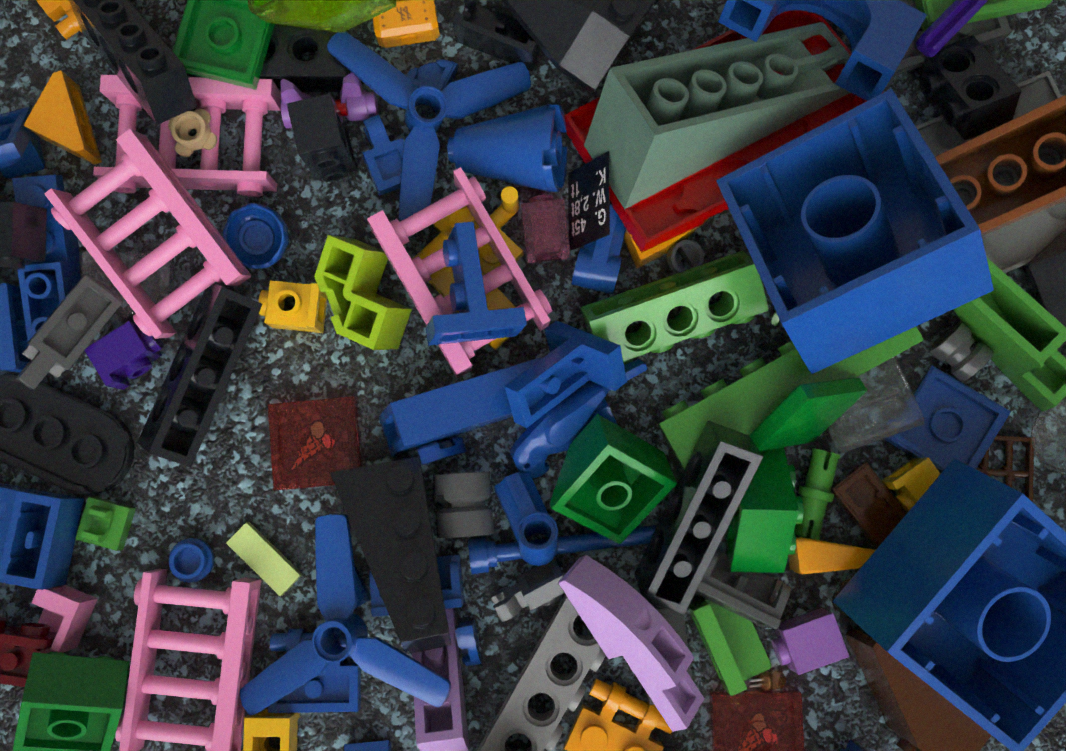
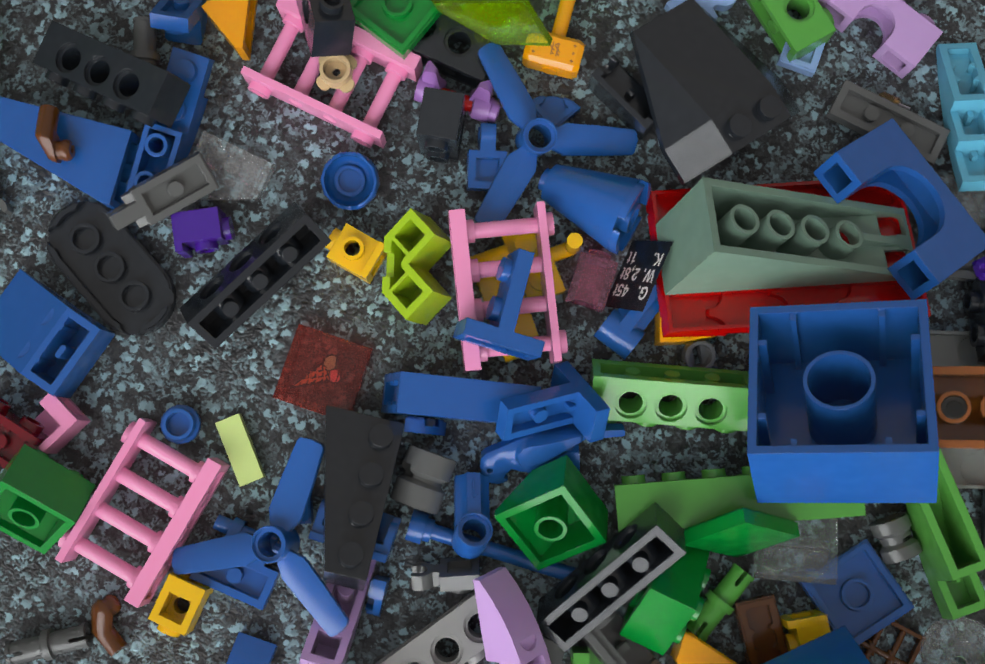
camera: 20 degrees right, 0 degrees up
(105, 523) = (124, 362): bright green tile -> none
(166, 195) = (293, 117): bright pink fence -> none

